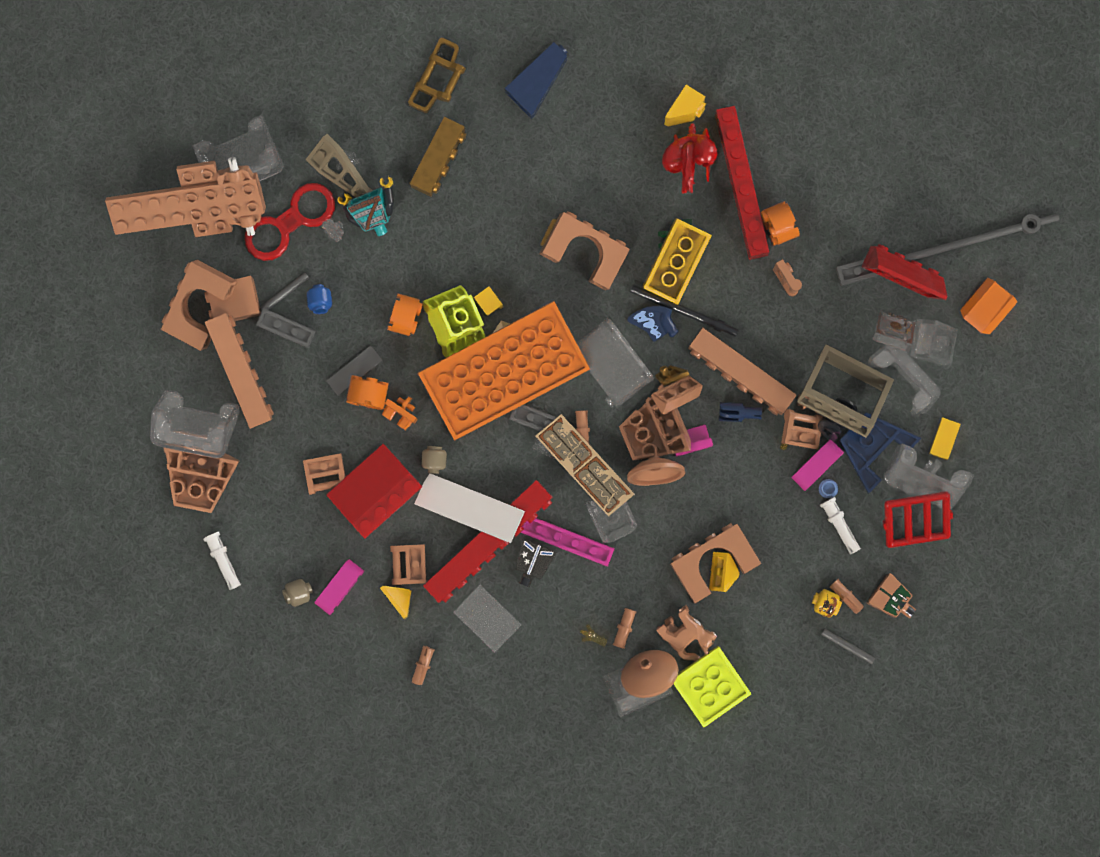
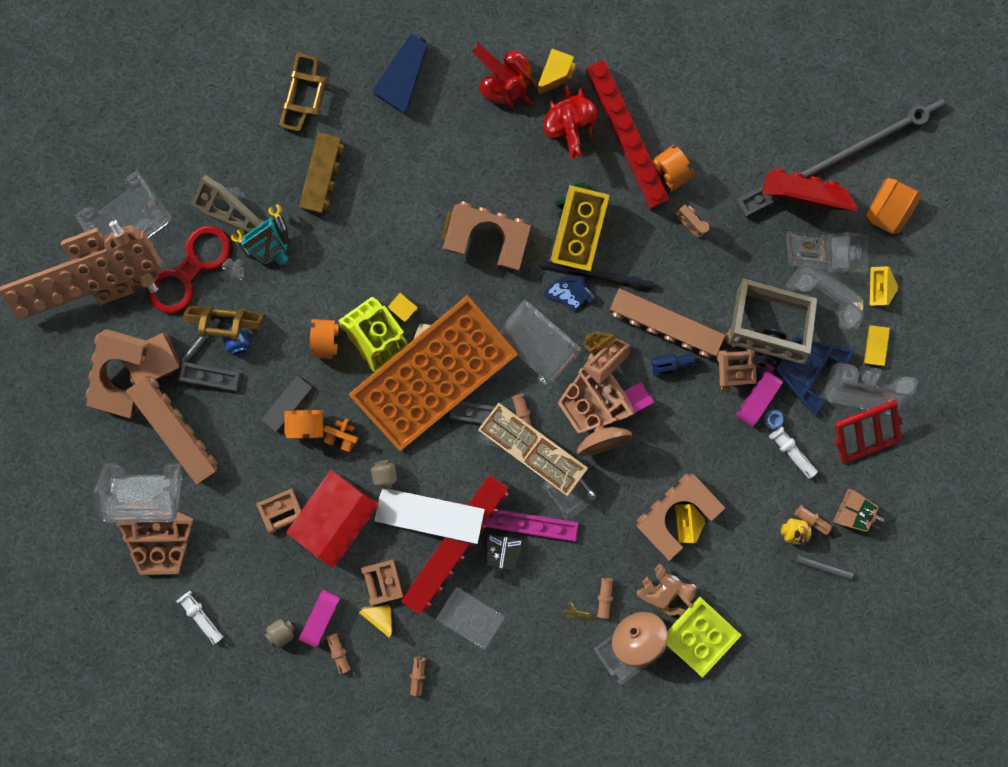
camera: 15 degrees left, 5 degrees up
(329, 279) = (204, 314): none -> pearl gold bar
(349, 625) = (338, 653): none -> nougat pin
(639, 105) = (508, 80): none -> red hair
(961, 382) = (882, 286): none -> yellow slope

